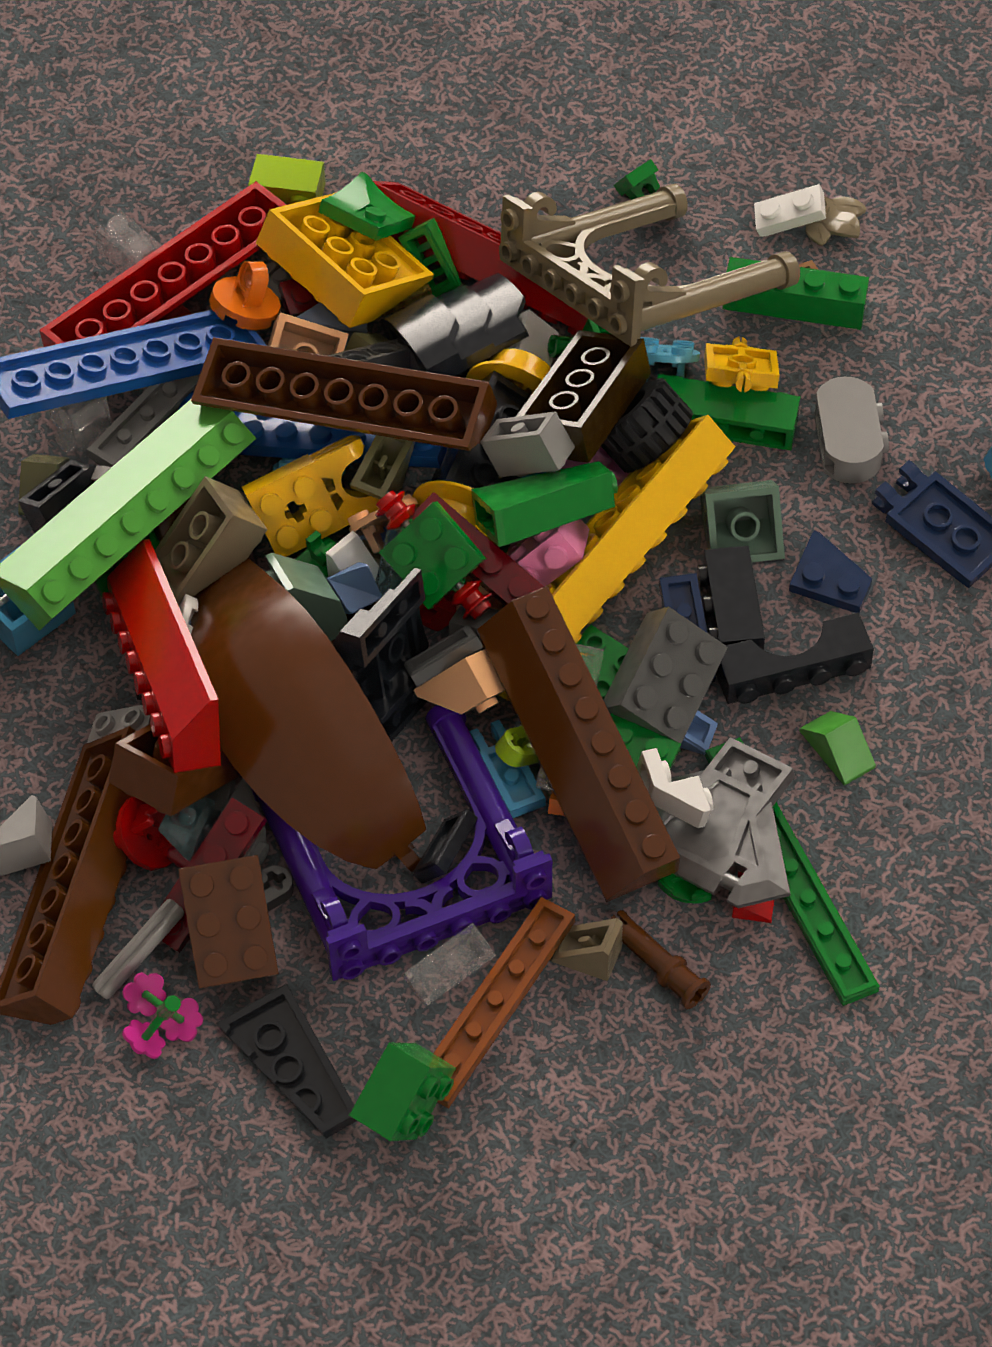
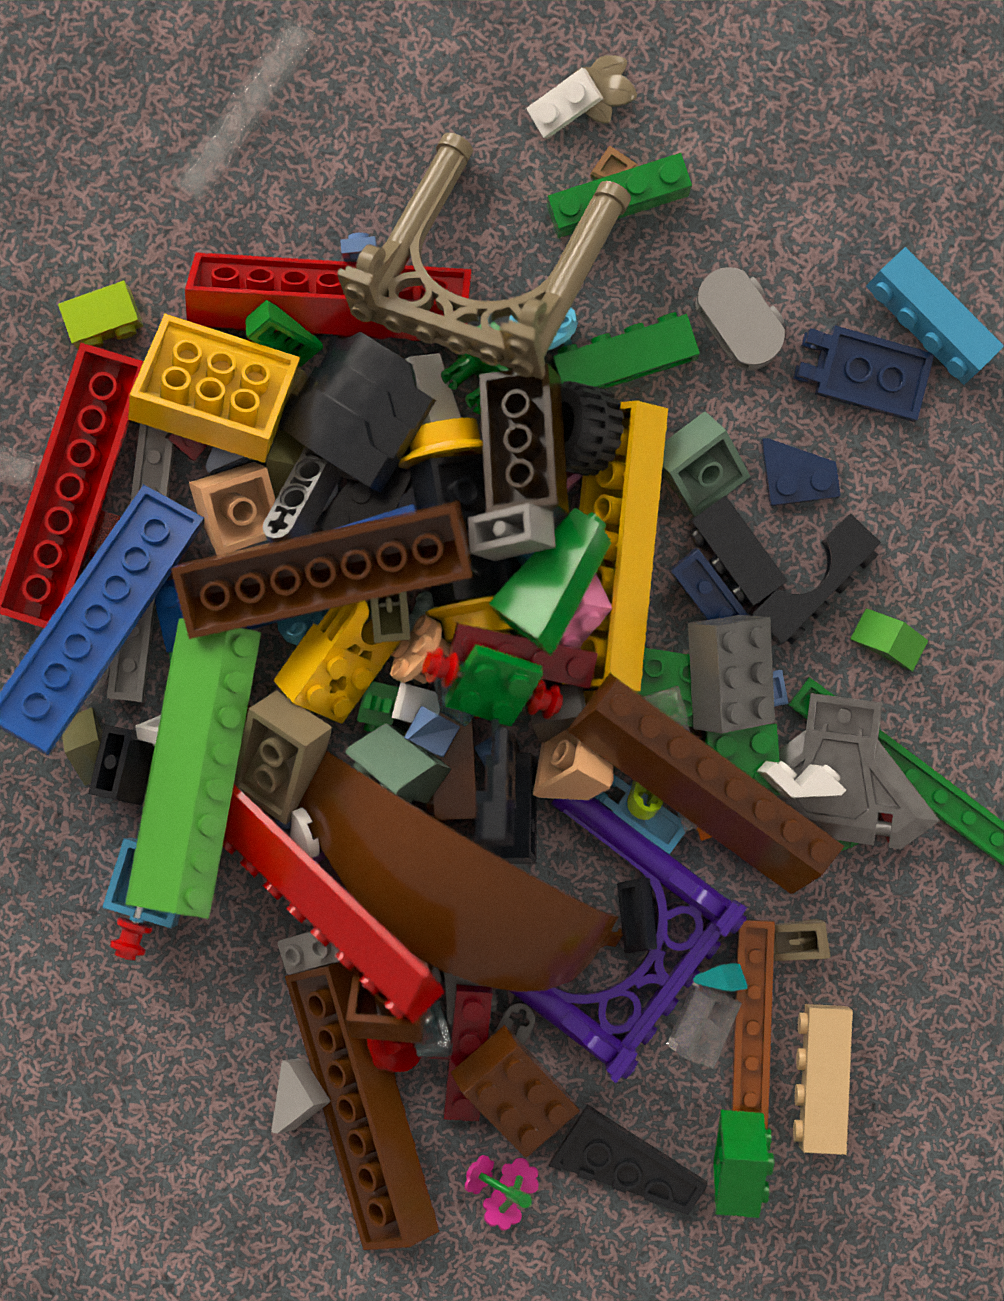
camera: 30 degrees left, 30 degrees up
(138, 949) = (452, 1144): light grey axle -> none
(246, 297) = (153, 480): orange tile -> none
(366, 209) = (205, 329): green plate -> none
(443, 655) = (547, 761): dark grey tile -> none
(494, 929) = (723, 977): none -> teal slope
(509, 106) = (245, 111): none -> clear plate
(537, 1081) = (825, 1079): none -> tan brick
(641, 177) = (408, 139): green tile -> none
(669, 969) = (871, 923): reddish brown pin -> none
(741, 366) = (619, 308): yellow plate -> none

